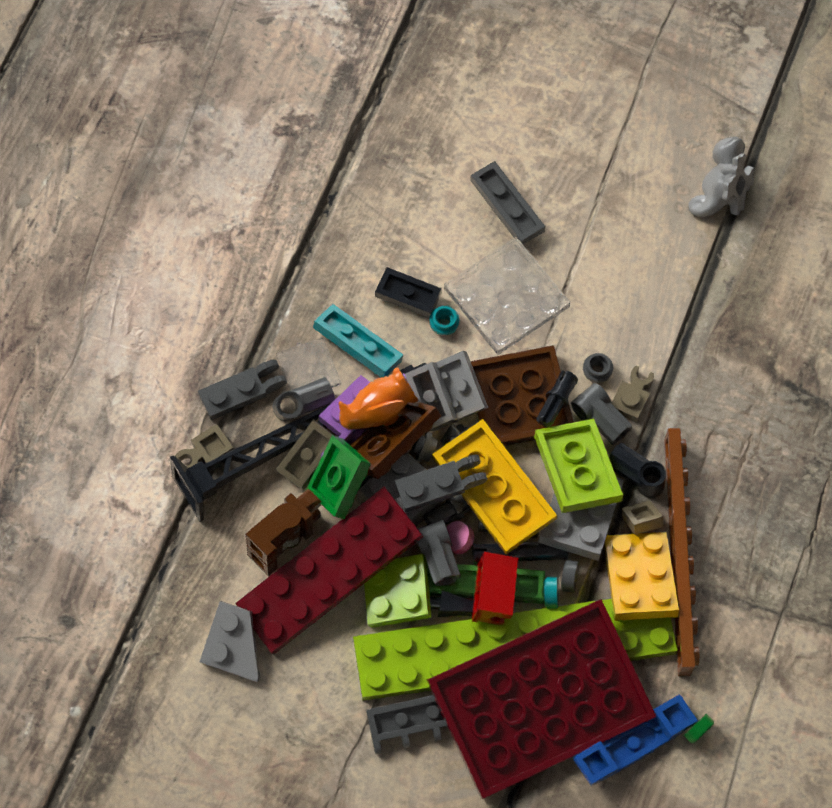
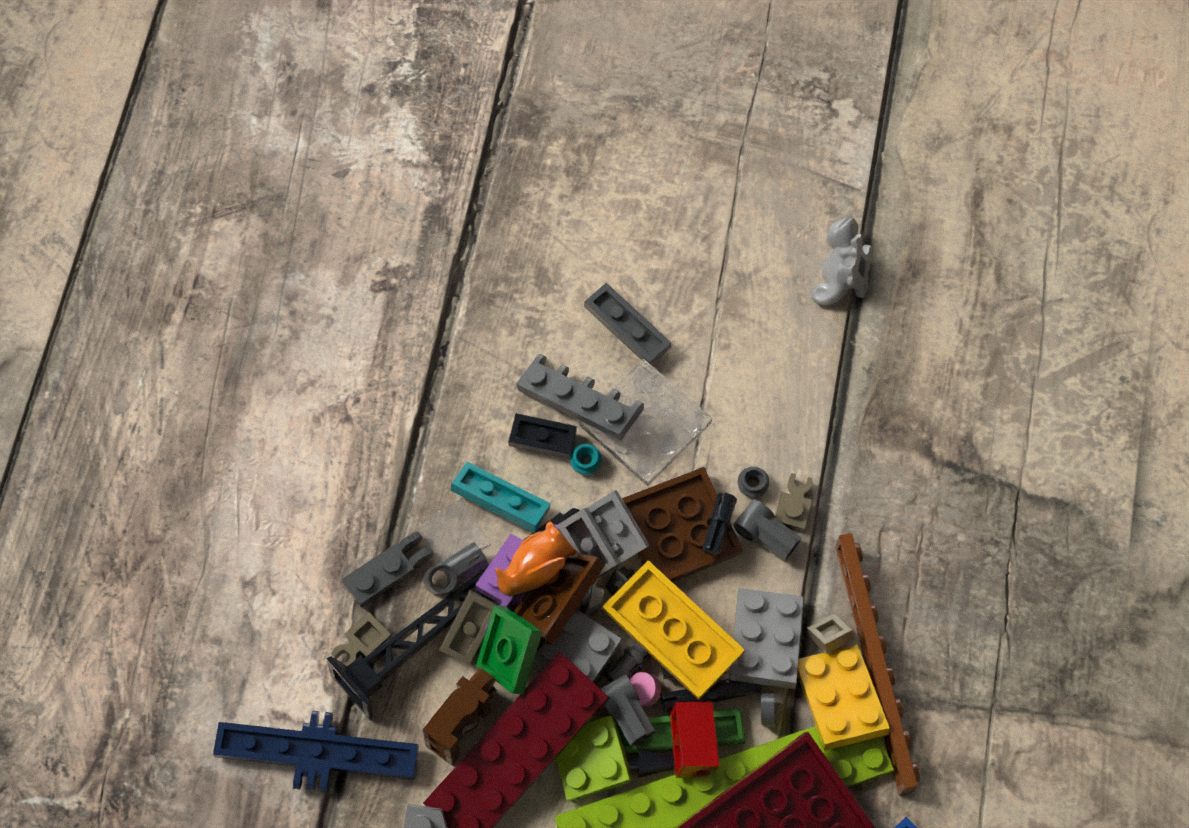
camera: 10 degrees left, 0 degrees up
(146, 540) = (316, 751): none -> dark blue hinge
(438, 483) = (614, 638): dark grey hinge -> none
(447, 263) = (578, 399): none -> dark grey hinge
(551, 592) = (752, 731): teal tile -> none
(578, 465) = (755, 591): lime plate -> none
(636, 467) = (812, 582): black piece -> none

